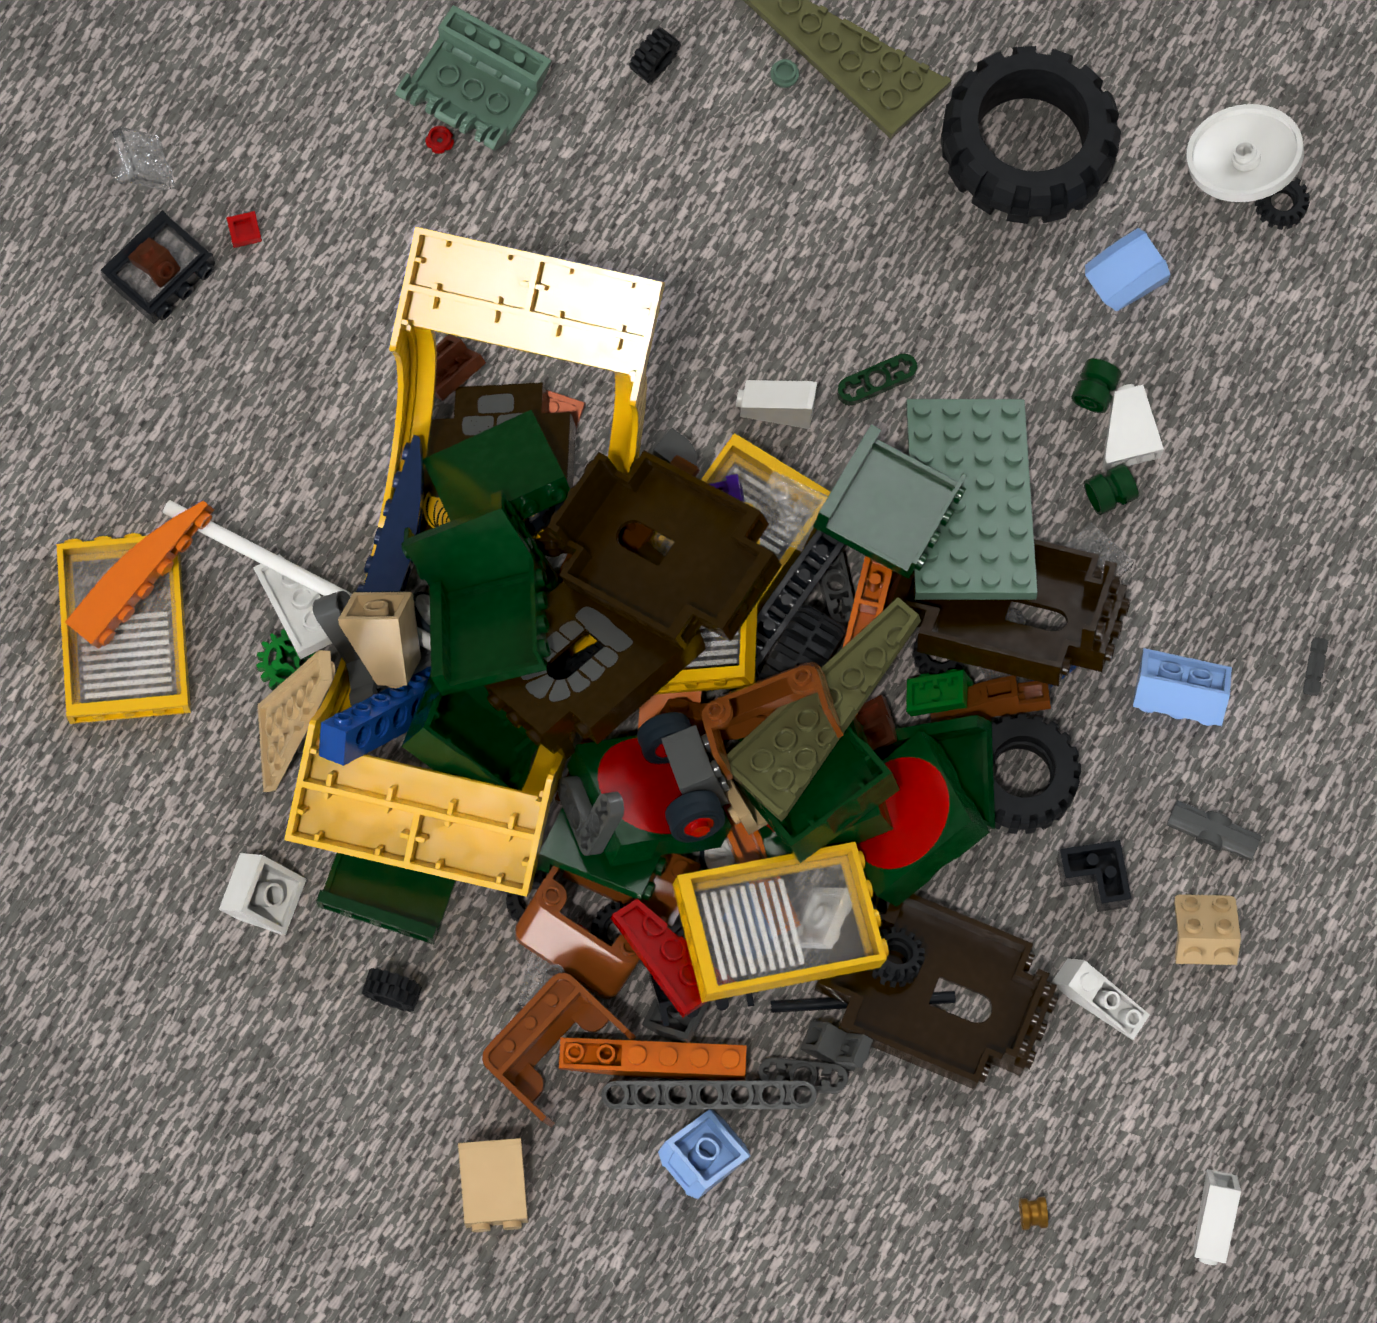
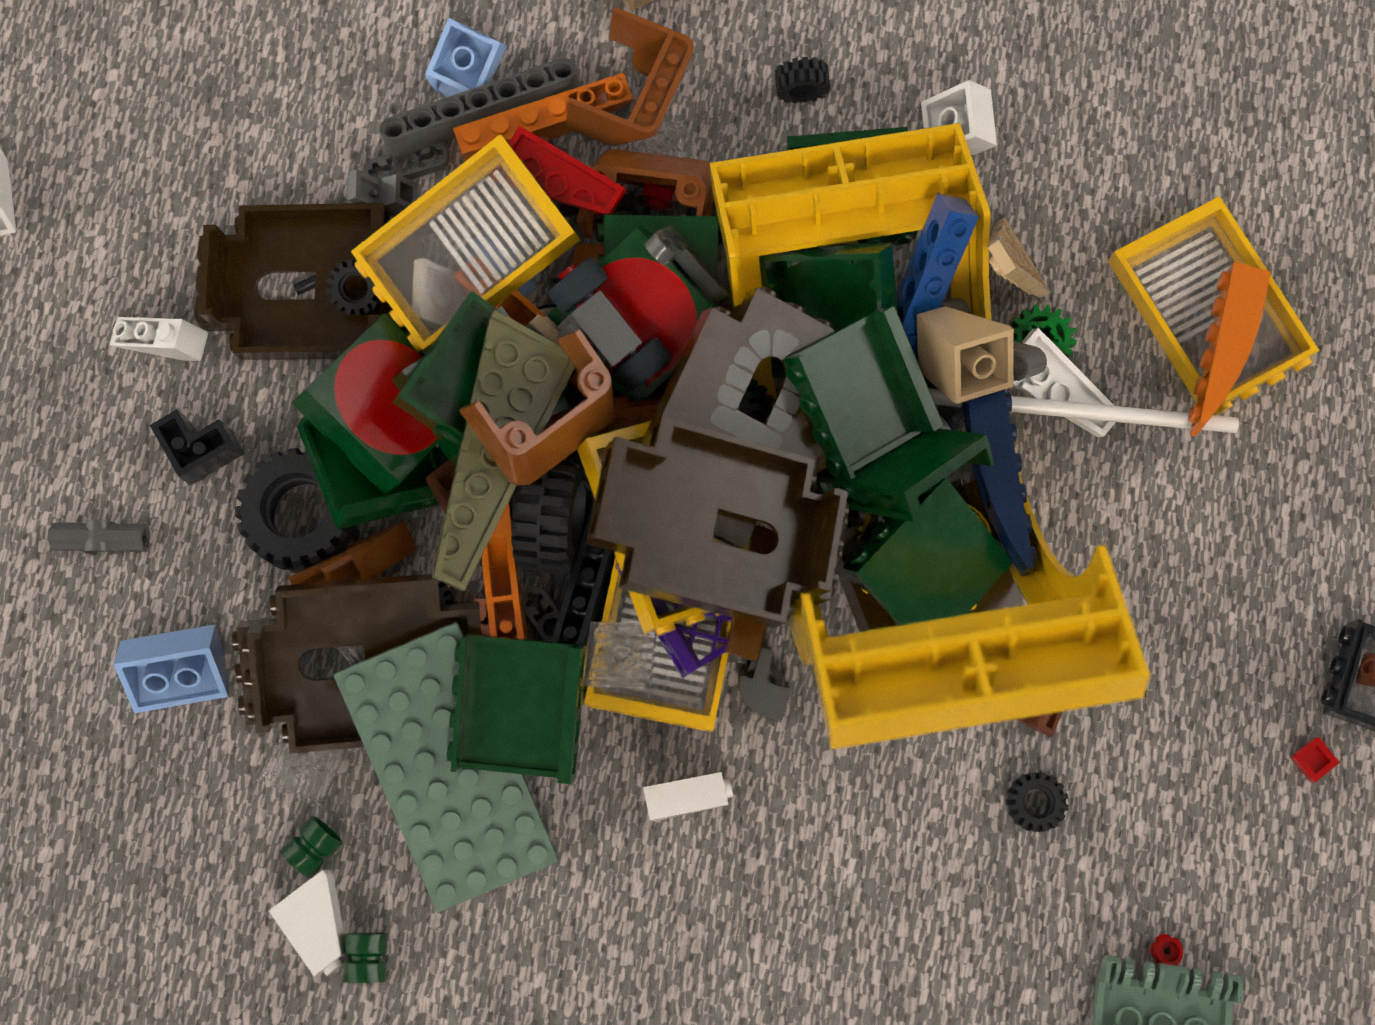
camera: 165 degrees right, 5 degrees up
(881, 368) = (574, 884): dark green beam -> none
(937, 692) = (407, 552): green bracket -> none
(1033, 1213) = (156, 127): pearl gold wheel -> none
(1207, 930) = (77, 443): tan bracket -> none
(1315, 666) = (48, 747): dark grey axle -> none

